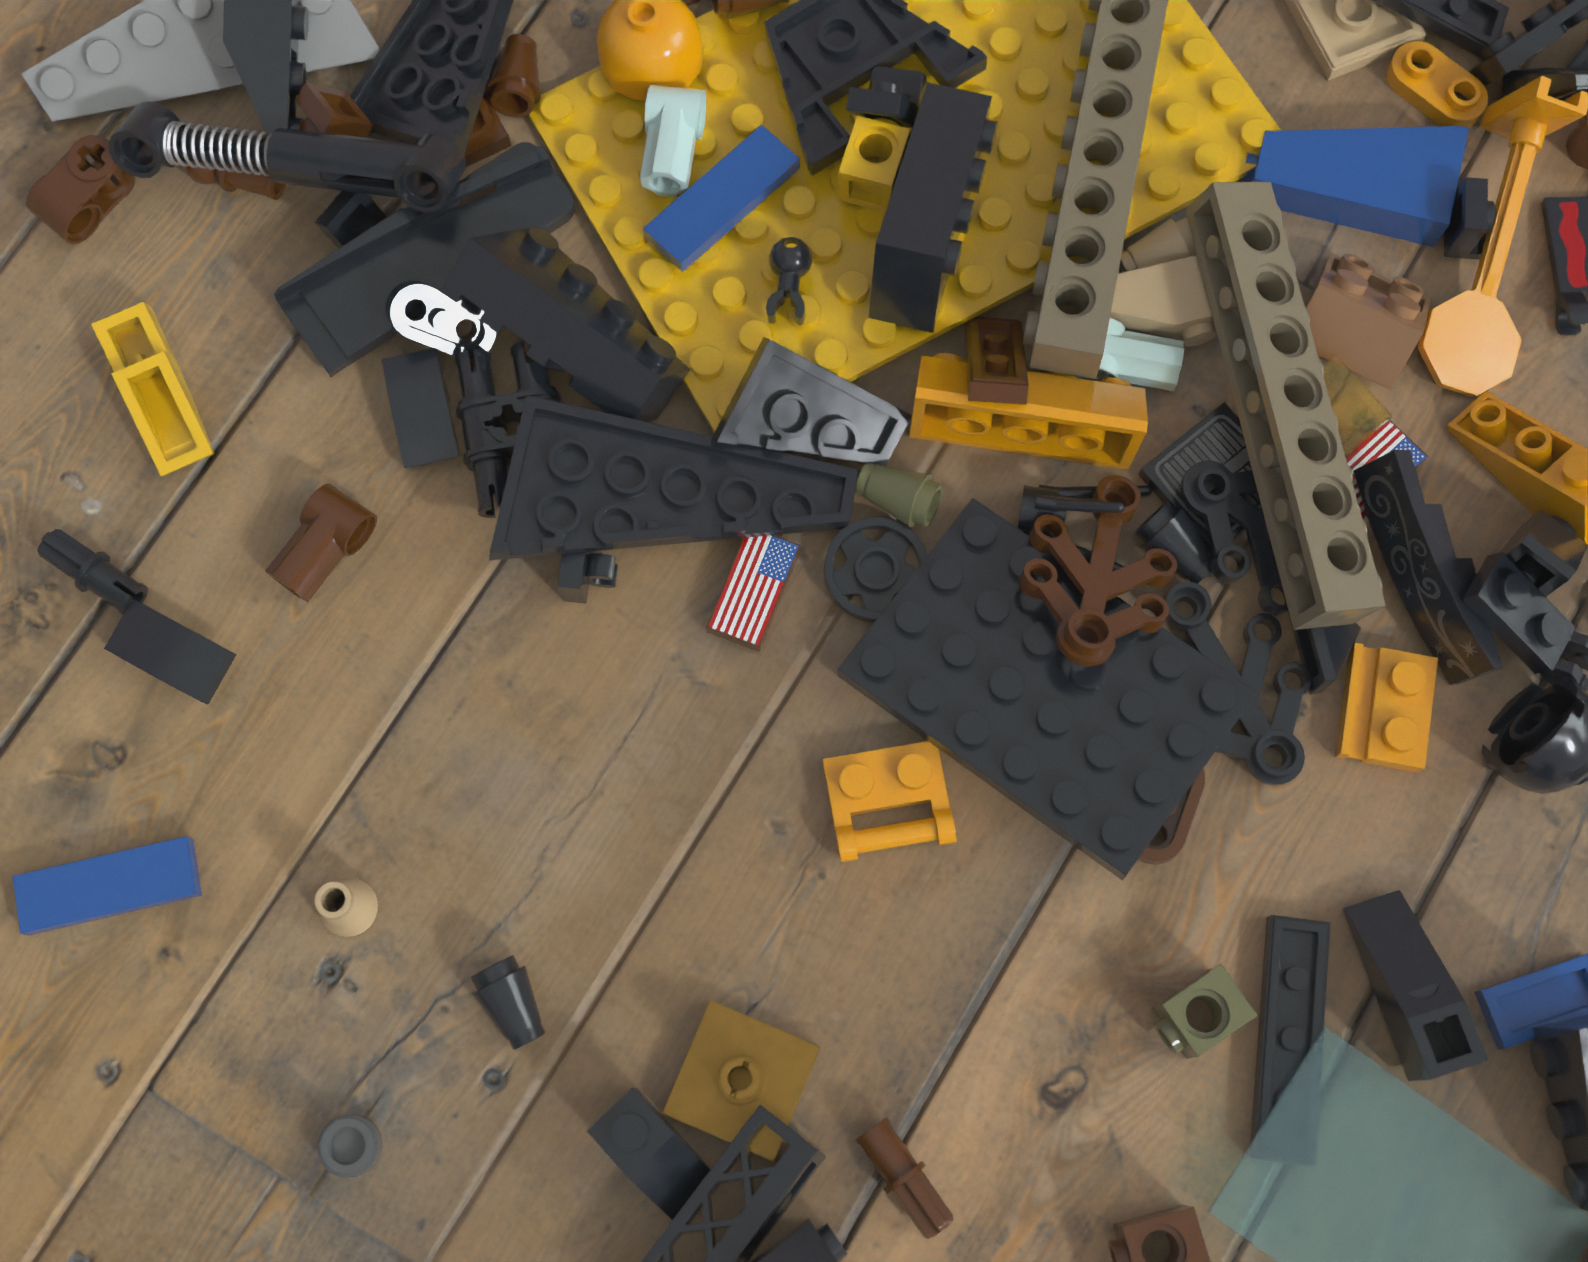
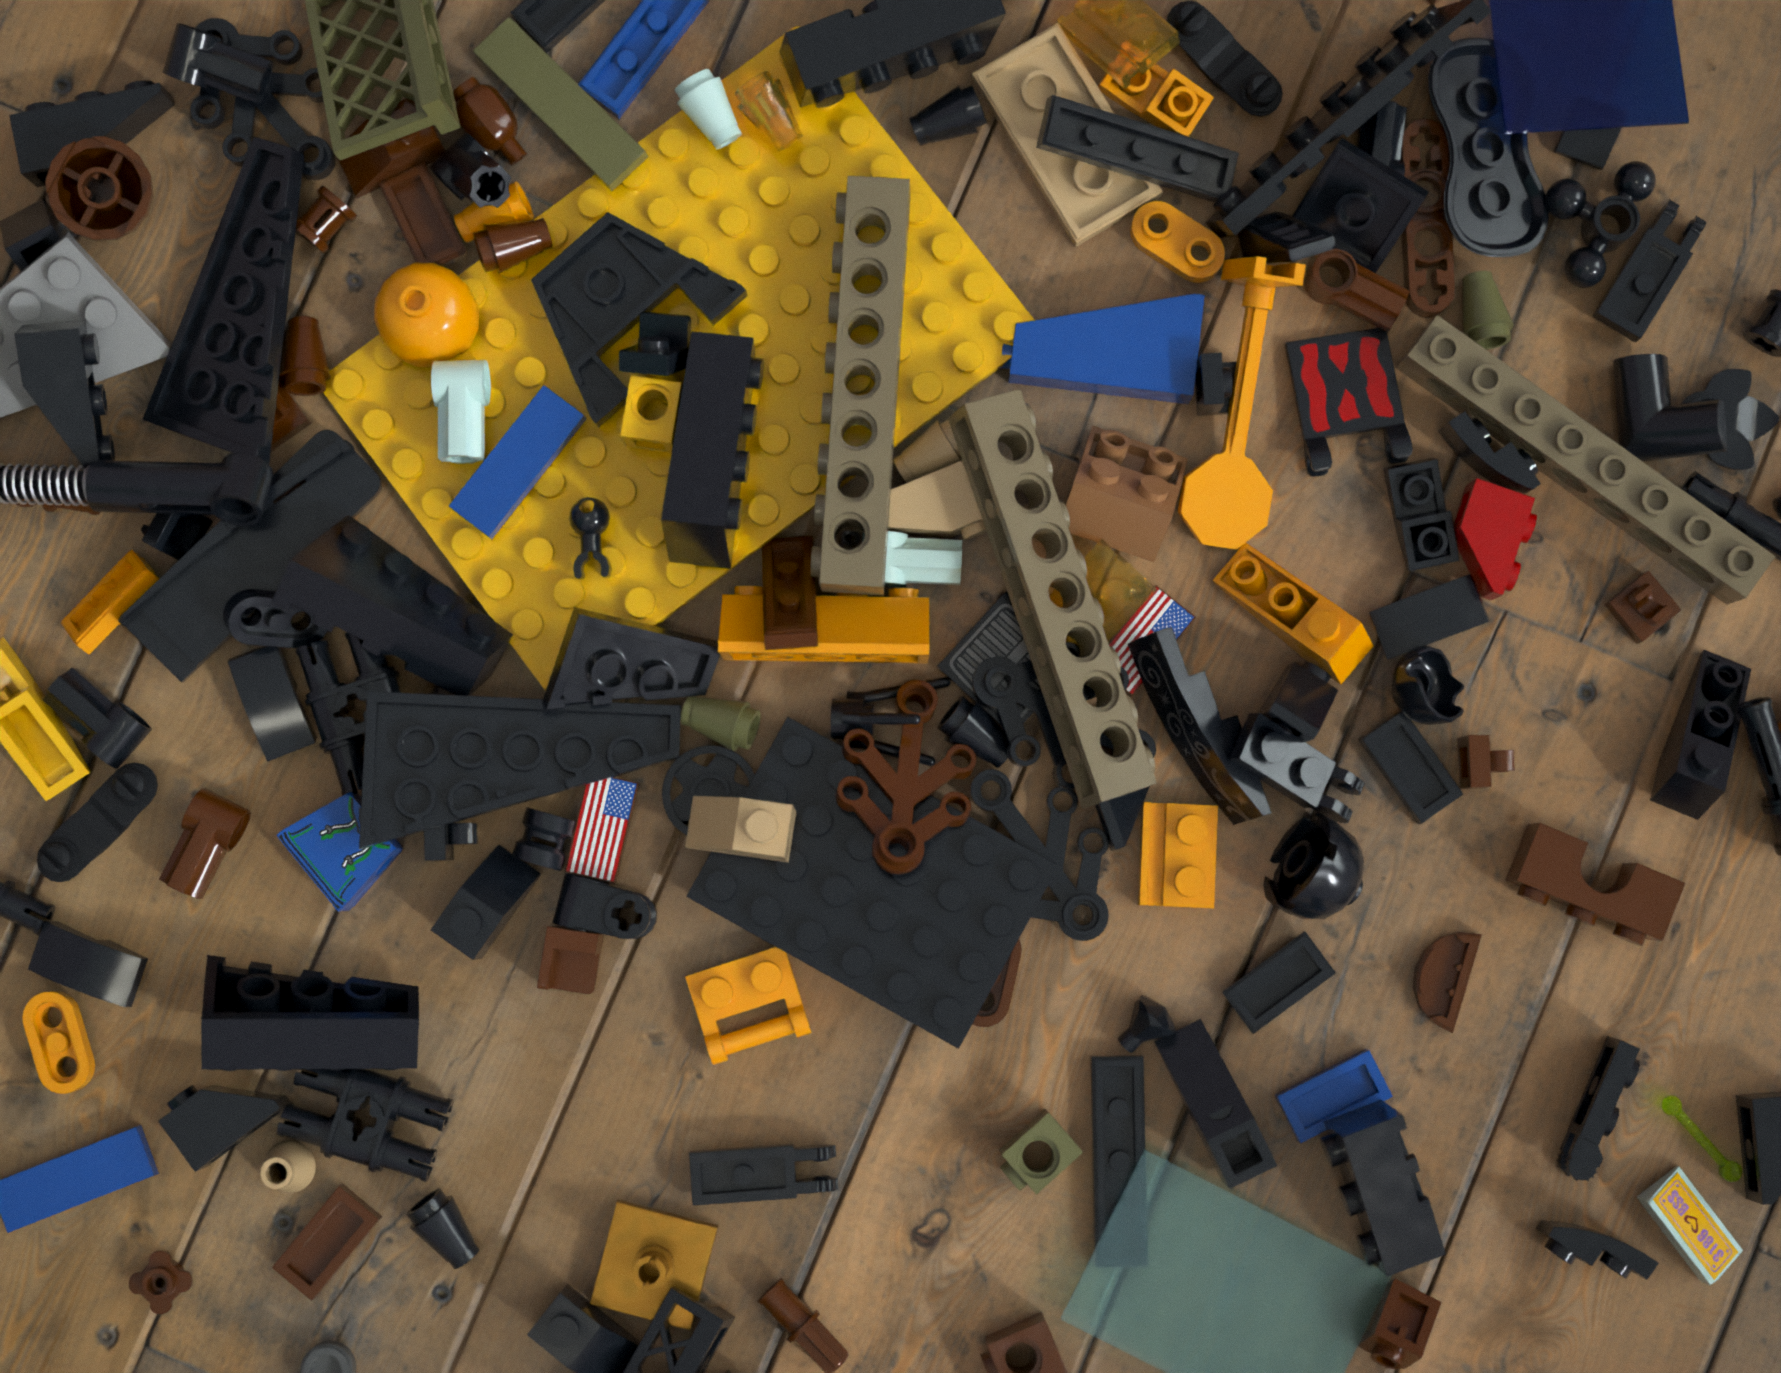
camera: 10 degrees left, 10 degrees up
(117, 735) = (54, 1043): none -> light orange plate
(197, 1016) = (176, 1281): none -> reddish brown plate
(211, 507) = (97, 822): none -> black piece
(238, 405) = (107, 725): none -> black piece
(256, 291) = (102, 607): none -> light orange plate
(278, 841) = (216, 1120): none -> black slope
(331, 112) = (137, 432): reddish brown tile -> none
(374, 999) = (327, 1242): none -> reddish brown tile
(396, 742) = (305, 1021): none -> black wedge
(448, 892) = (376, 1145): none -> black pin
(458, 569) = (330, 852): none -> blue torso
(614, 648) = (485, 903): none -> black slope
(689, 588) = (546, 827): none -> black wheel
(698, 721) = (570, 960): none -> reddish brown panel
(733, 670) = (596, 908): none -> black piece
(873, 990) = (756, 1173): none -> black hinge
(913, 595) = (741, 827): none -> tan slope
(1338, 886) = (1147, 1023): none -> black rock
(1491, 862) = (1278, 982): none -> black tile

